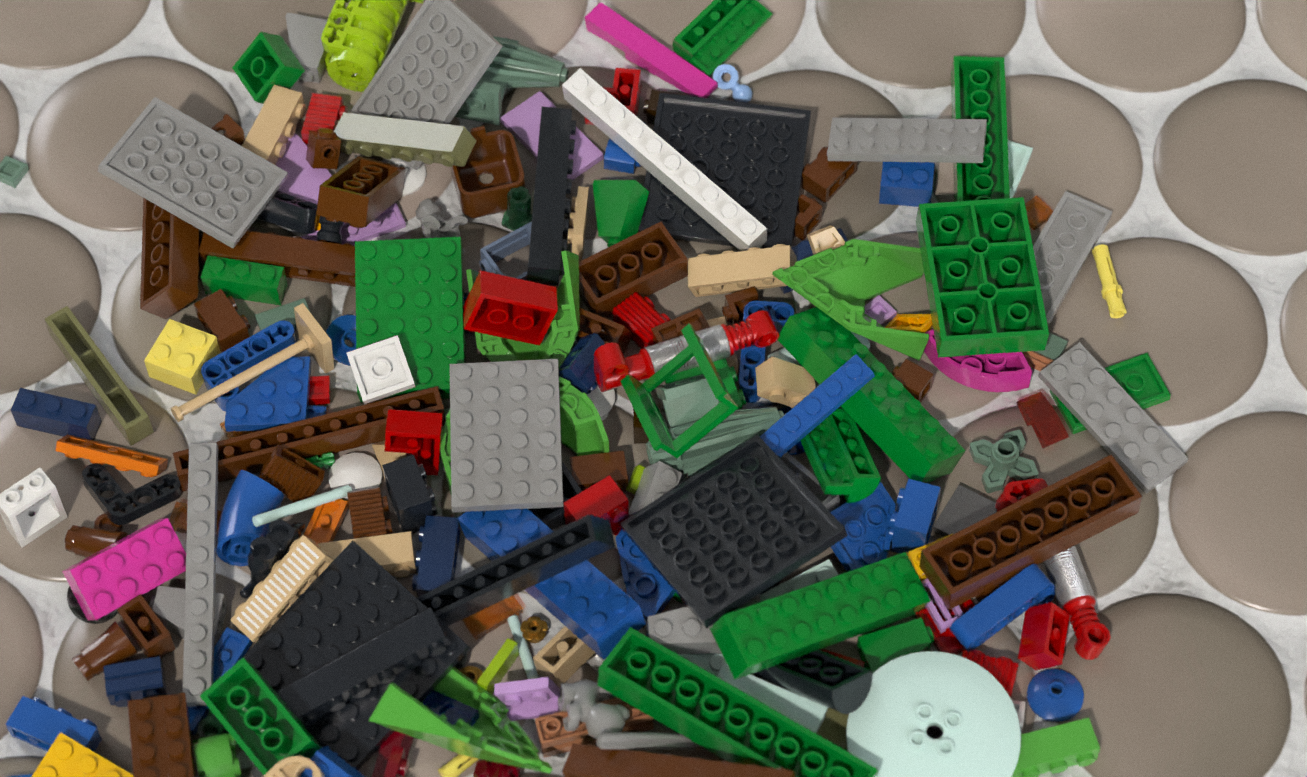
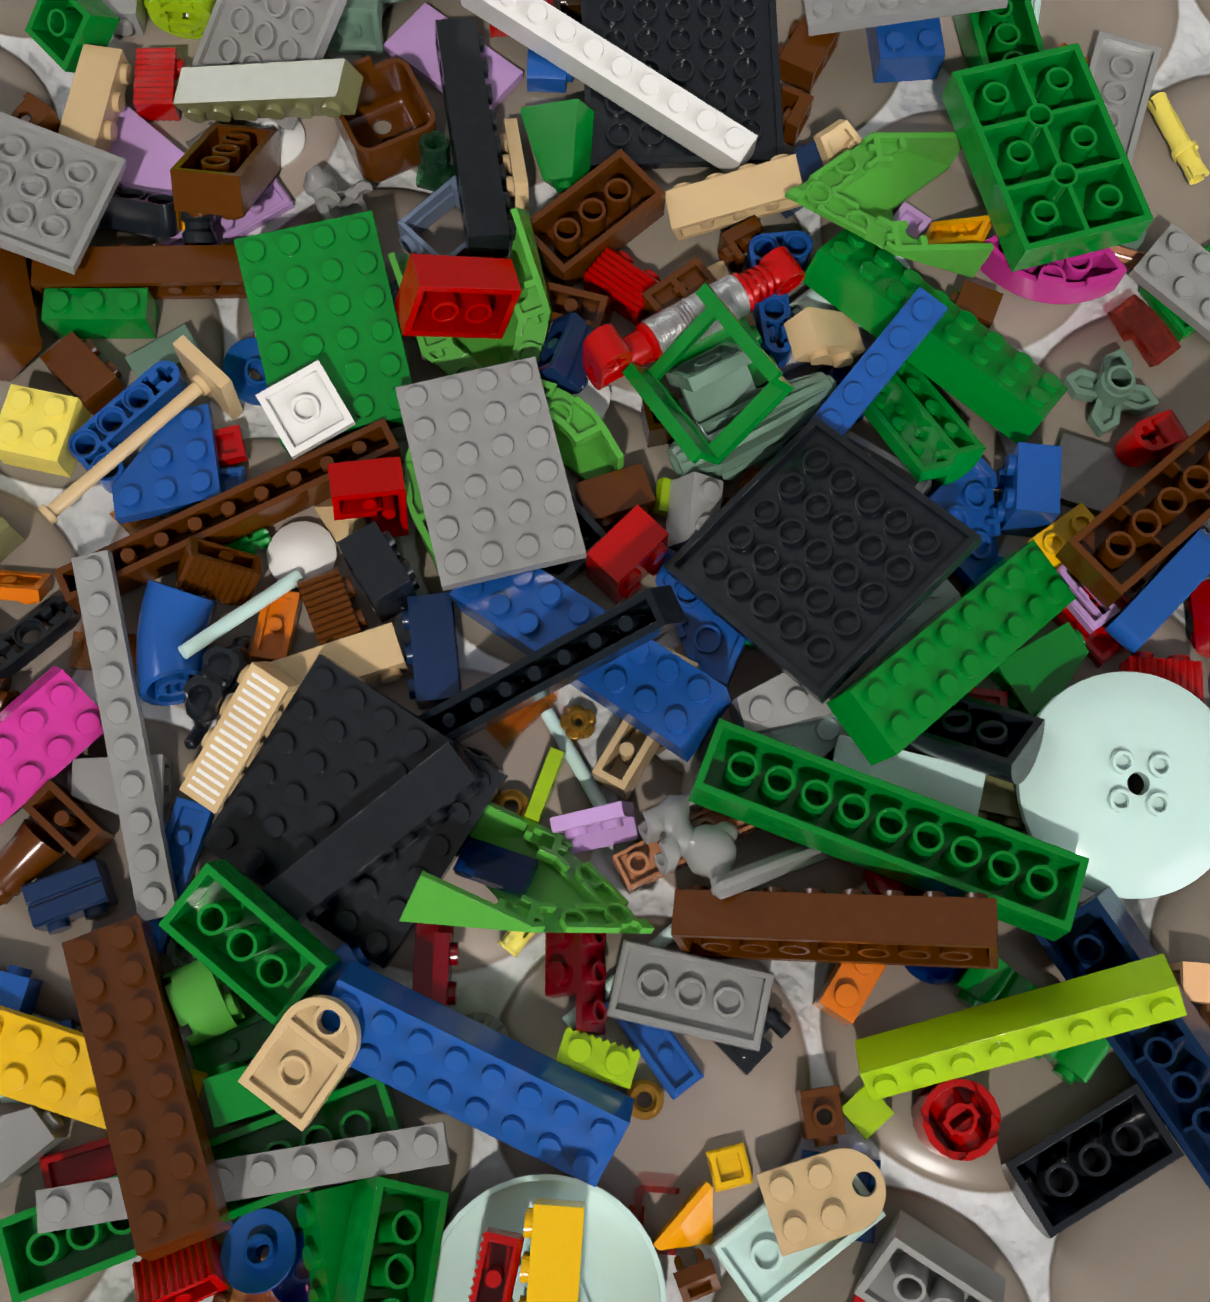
camera: 15 degrees left, 15 degrees up
(323, 149) = (166, 120): reddish brown brick -> none

